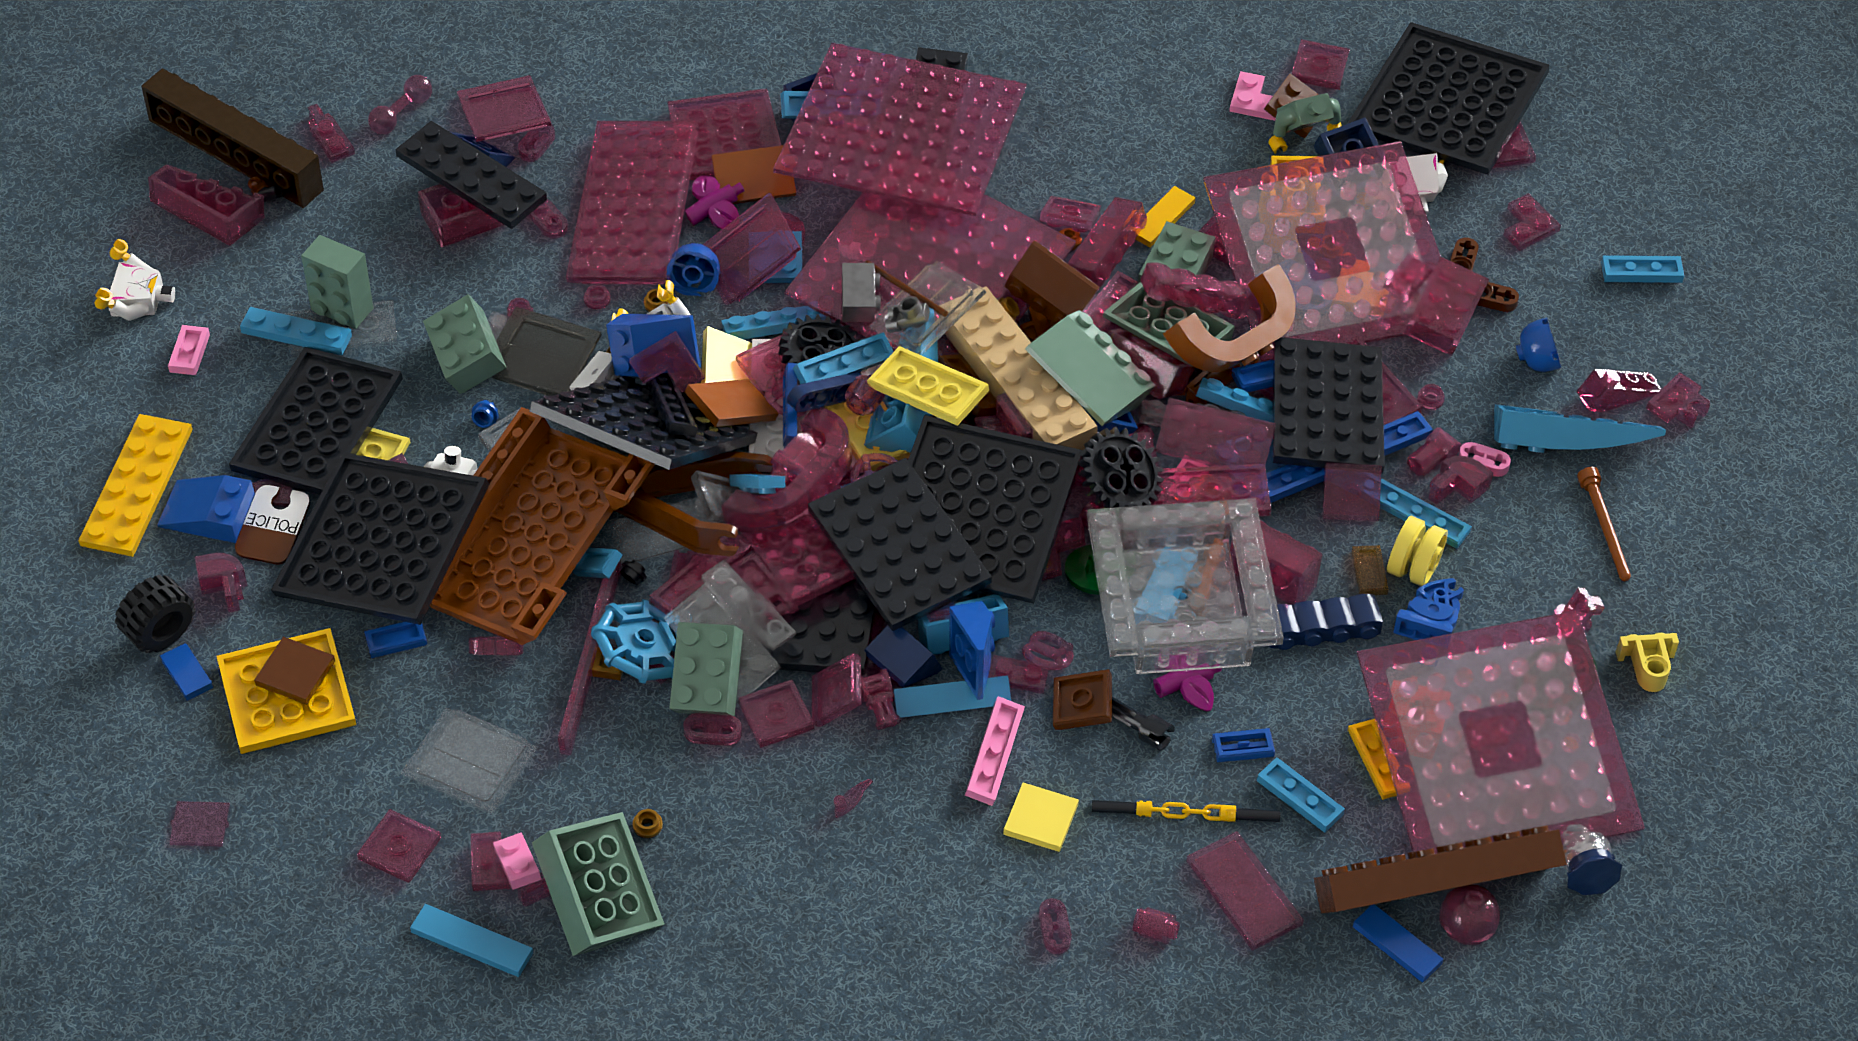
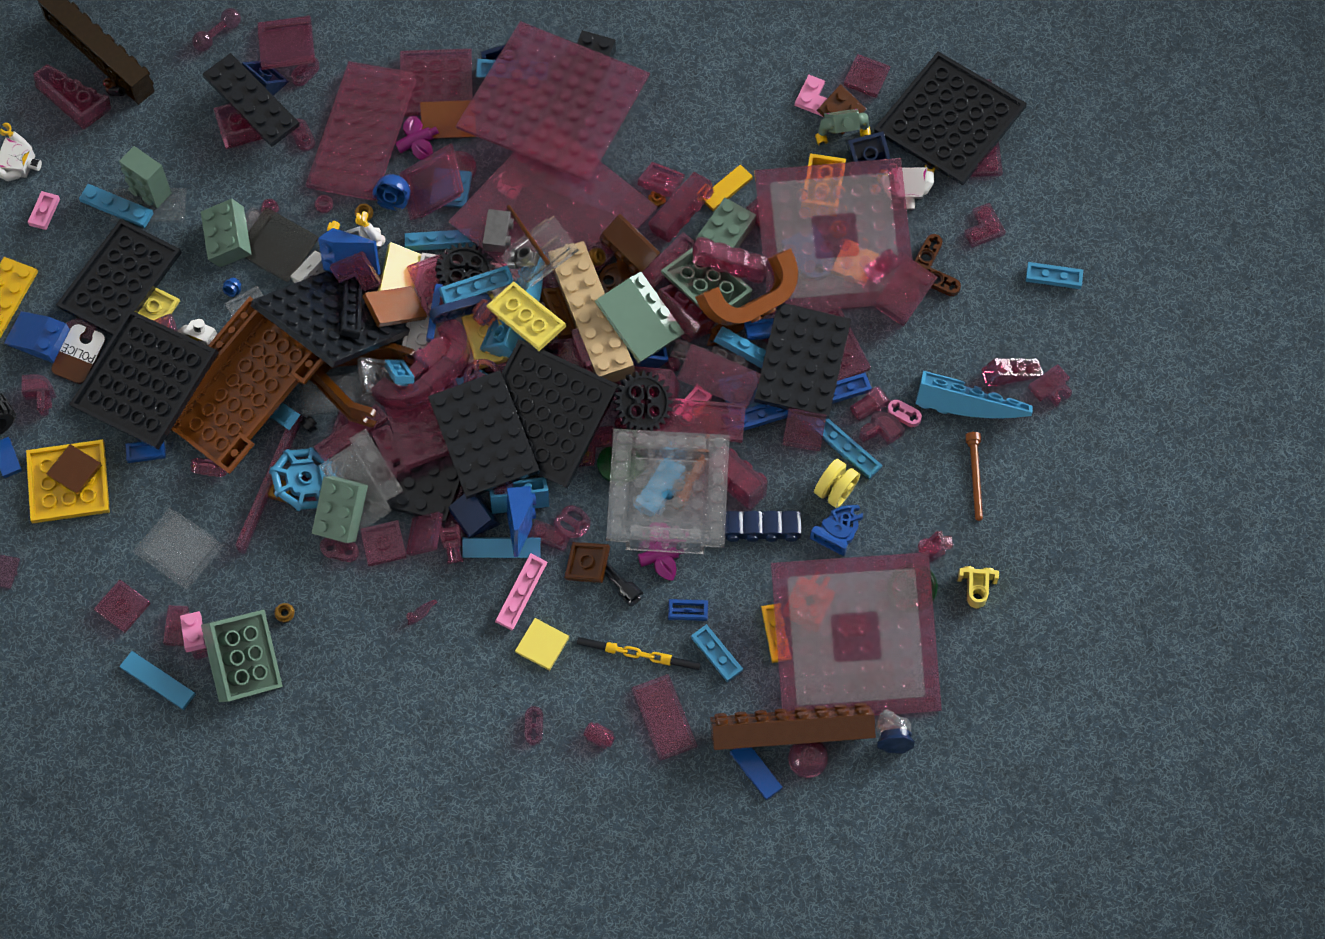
camera: 10 degrees right, 15 degrees up
(329, 135) = (164, 48): clear pink hinge -> none
(1369, 570) = (804, 489): clear orange tile -> none
(1433, 391) = (879, 354): clear pink plate -> none
(1538, 347) = (963, 331): blue cylinder -> none

